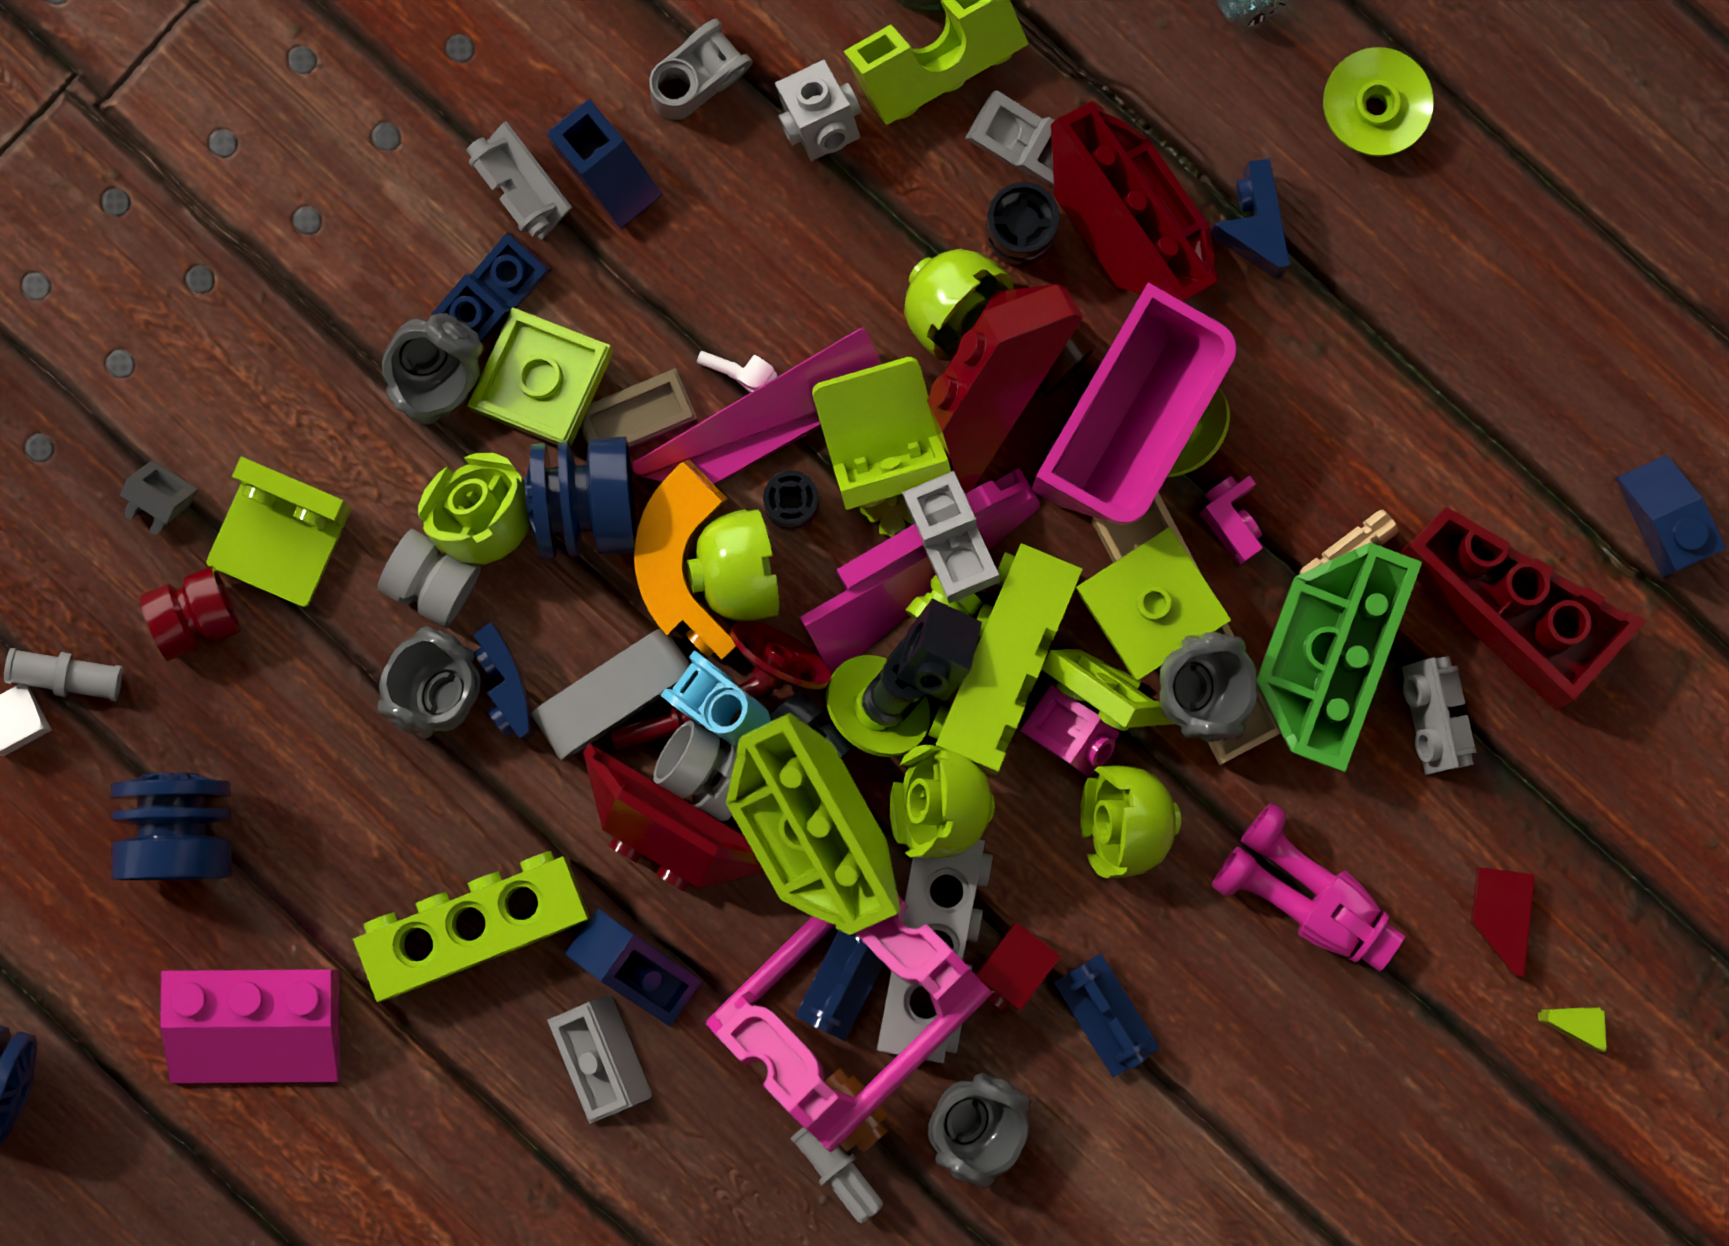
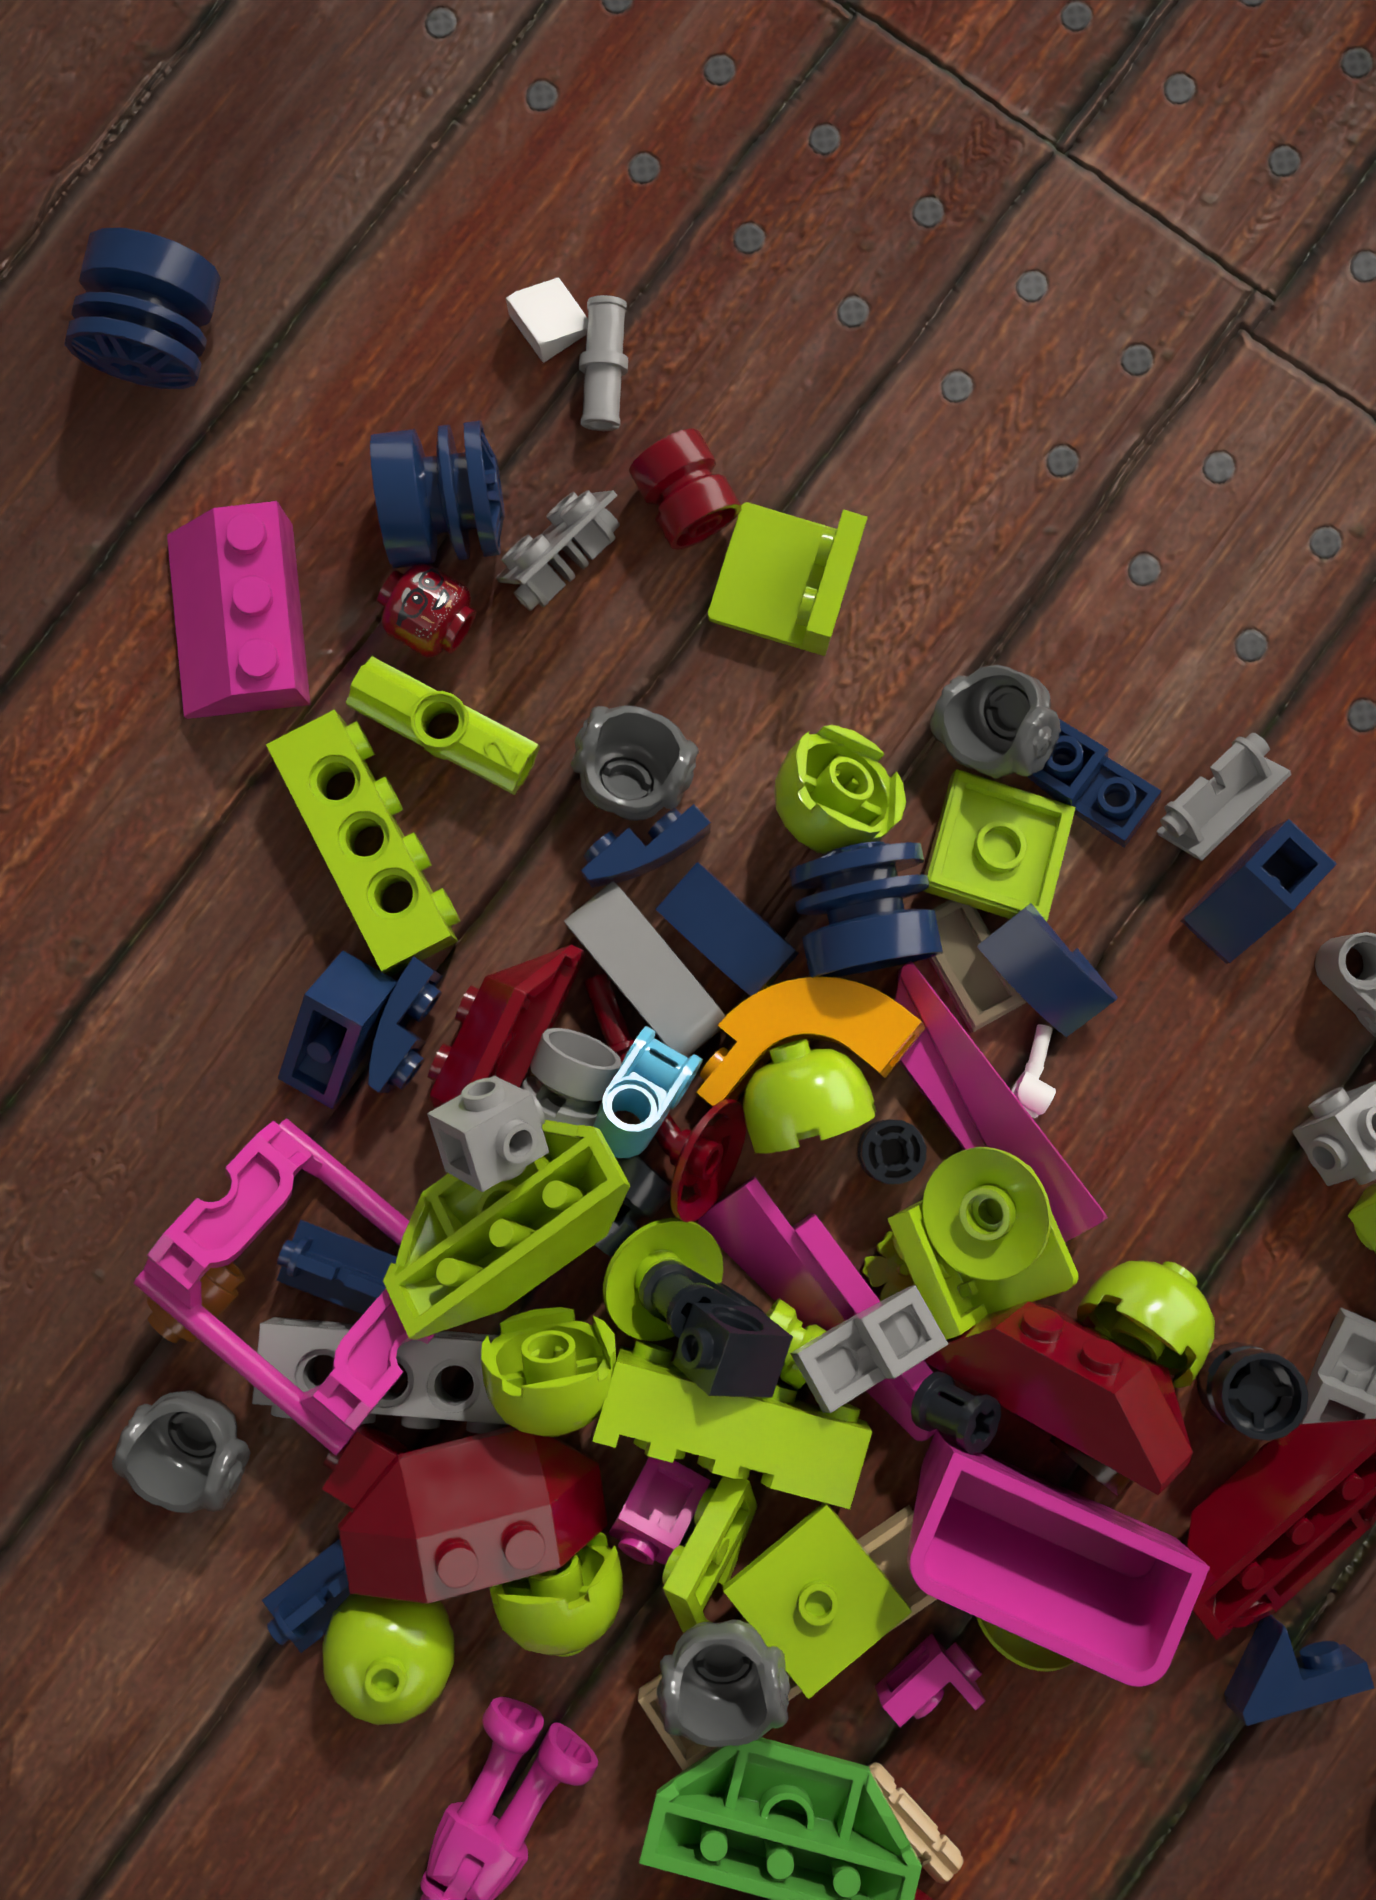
camera: 85 degrees right, 0 degrees up
(158, 494) = (815, 440): dark grey tile -> none
(209, 715) = (573, 518): none -> light grey hinge
(271, 853) = (426, 610): none -> dark red head
(353, 878) = (409, 708): none -> lime piece
(430, 579) = (756, 741): light grey wheel -> none
(585, 620) = (726, 930): none -> dark blue slope
(600, 1058) = (233, 1004): light grey slope -> none
(653, 350) = (1045, 971): none -> dark blue slope
(655, 916) = (395, 1047): none -> dark blue slope
(734, 827) = (489, 1132): none -> light grey brick
(841, 1175) = (113, 1301): light grey axle -> none
(853, 449) = (965, 1231): none -> lime dish
(1011, 471) = (956, 1412): none -> black bush
(1053, 885) = (471, 1516): none -> dark red wedge
(1164, 971) = (387, 1657): none -> lime cylinder

